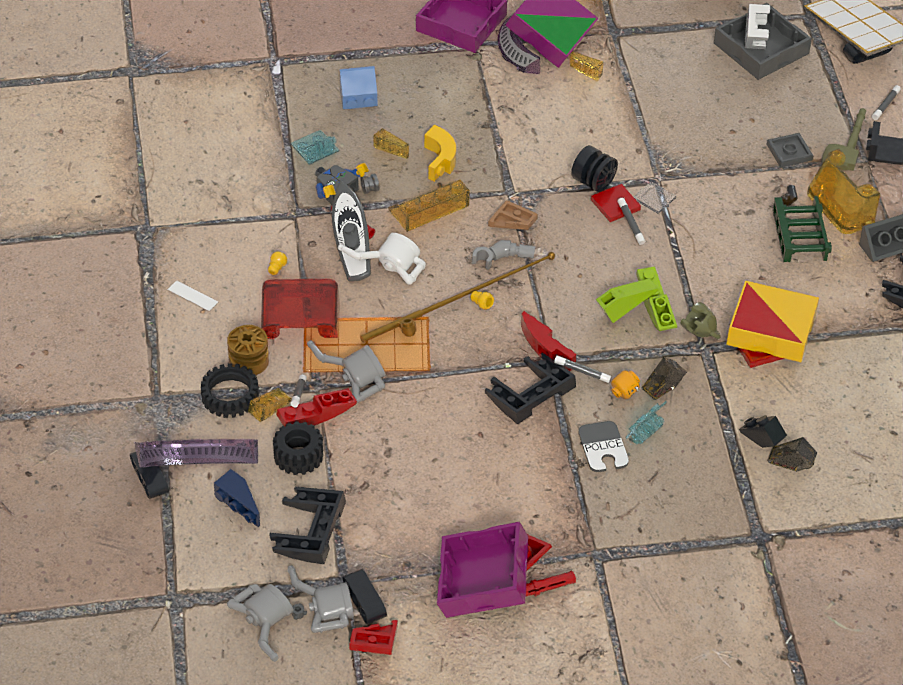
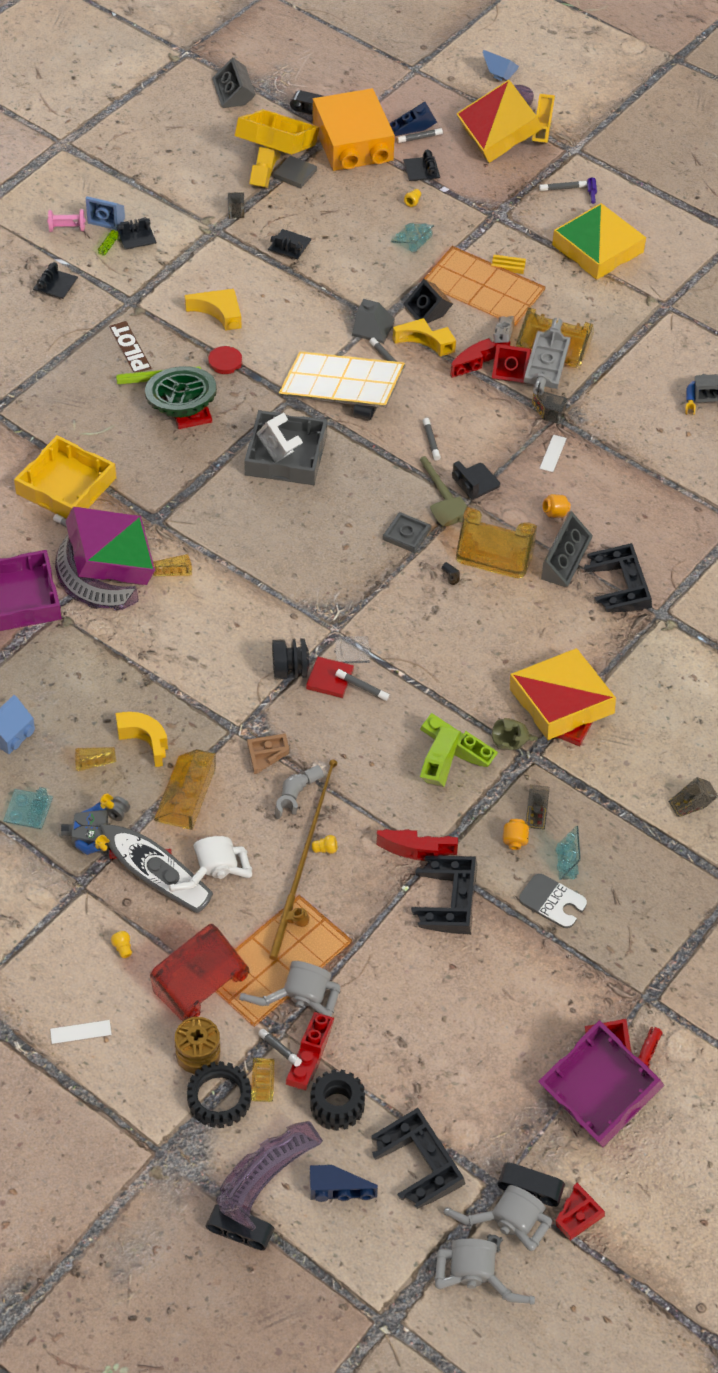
camera: 45 degrees left, 5 degrees up
(582, 369) = (470, 846): dark grey bar -> none
(763, 431) = (653, 793): black slope -> none
(785, 235) = (487, 611): dark green fence -> none

